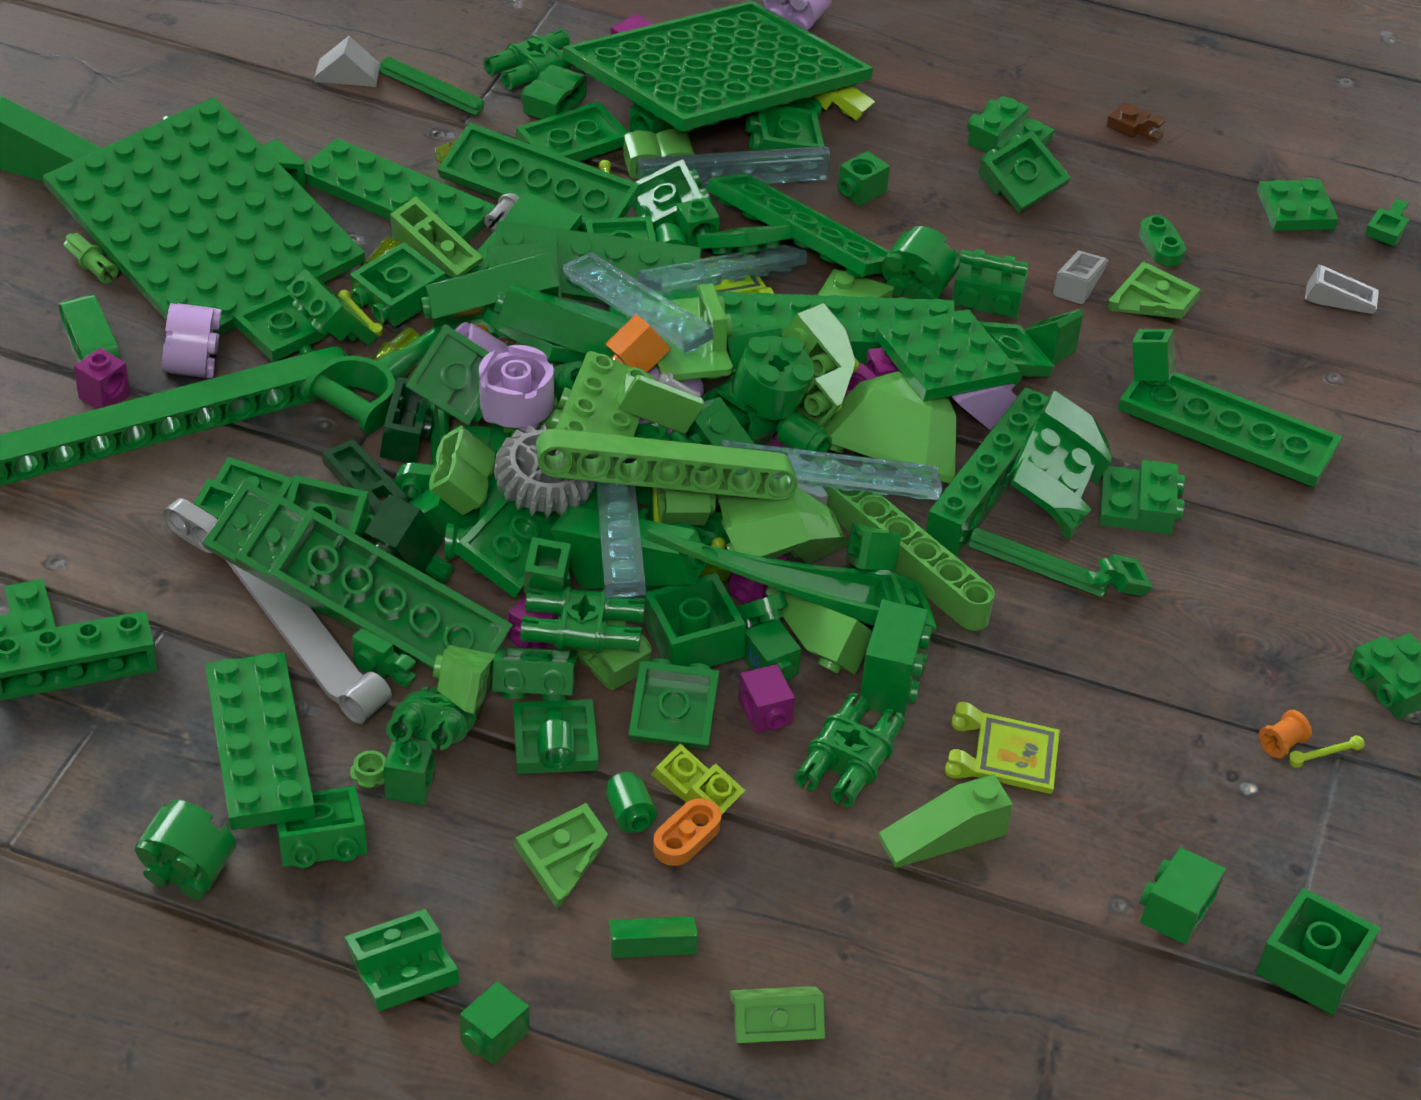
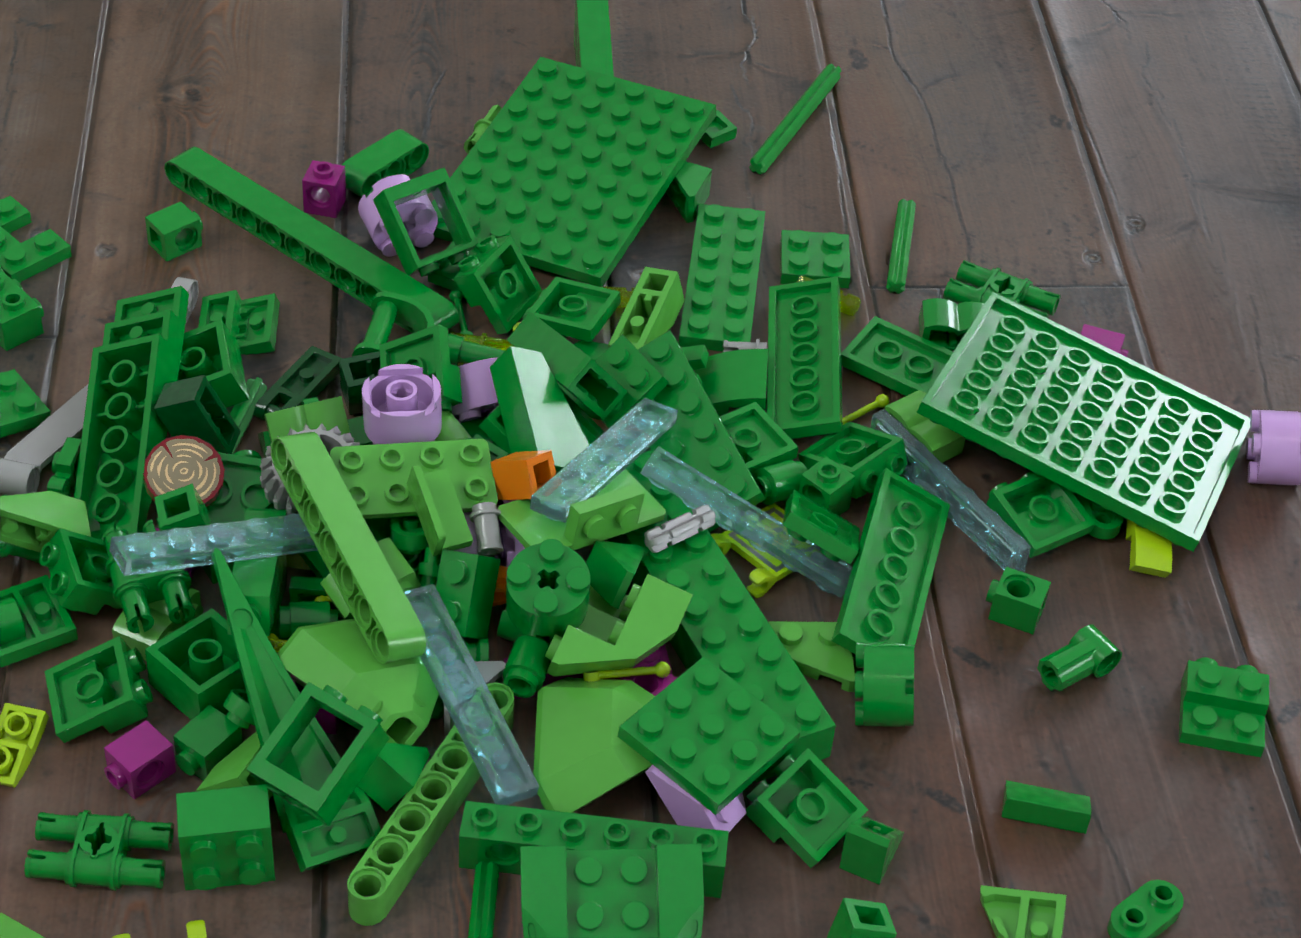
camera: 65 degrees right, 0 degrees up
(82, 499) = (174, 231): none -> green brick
(222, 78) = (795, 119): none -> green axle
(227, 289) = (452, 212): none -> green window
(348, 65) = (880, 185): light grey slope -> none
(411, 136) = (814, 256): none -> green plate
(490, 553) = (182, 462): none -> dark tan tile
(723, 289) = (679, 528): none -> light grey axle
(858, 595) = (348, 772): none -> green window
(933, 172) = (1085, 655): none -> green piece
(990, 283) = (913, 761): green brick -> none
(1023, 171) = (1144, 734): green plate -> none
(1052, 245) = (1046, 807): none -> green slope
(1079, 277) = (986, 850): light grey slope -> none

